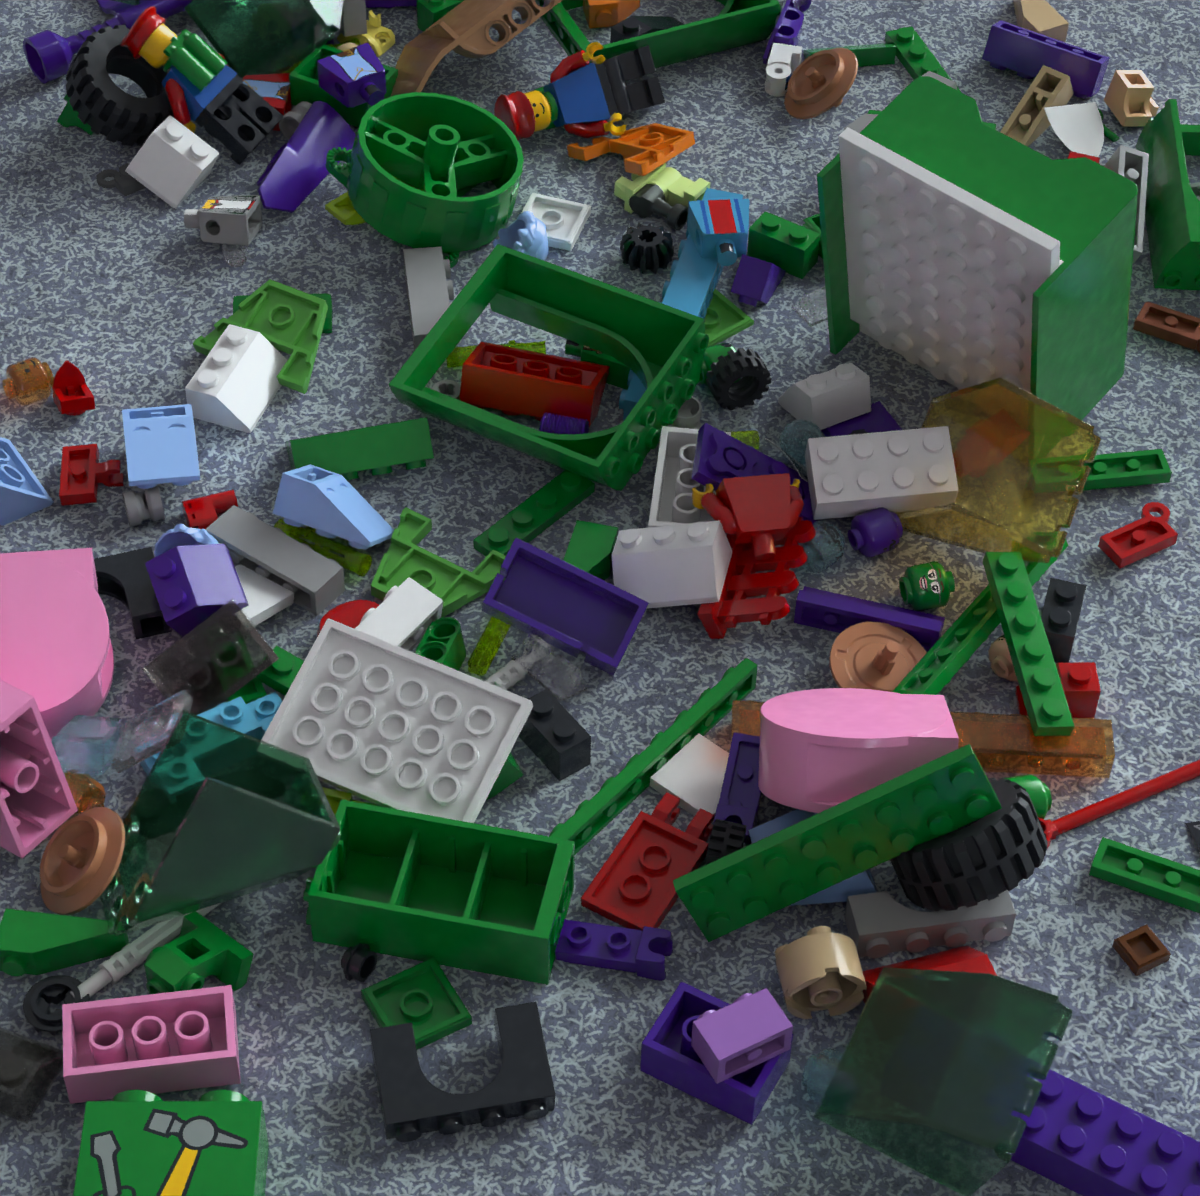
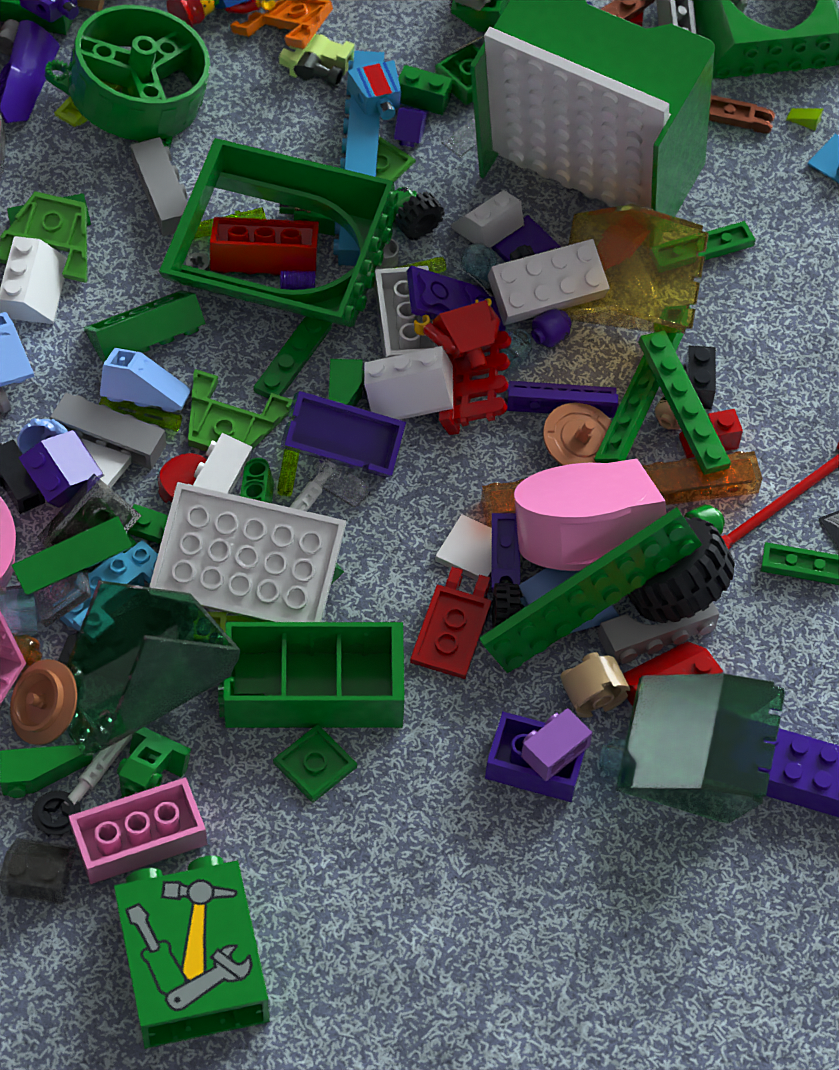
camera: 15 degrees left, 10 degrees up
(172, 687) = (72, 556): none -> green panel
(204, 510) = (39, 400): red piece -> none
(358, 962) = (265, 738): black plate -> none
(416, 1106) = (335, 836): black arch -> none
(525, 235) = (220, 121): light blue hair -> none
(556, 736) = (361, 537): black brick -> none
(562, 219) = (235, 96): white tile -> none
(616, 948) = (445, 691): dark purple plate -> none
(635, 778) = (416, 571): green plate -> none
(647, 248) = (318, 109): black gear -> none
(926, 586) = (598, 366): green head -> none
(1140, 537) = (743, 296): red hinge -> none
(1141, 950) = (807, 621): reddish brown tile -> none

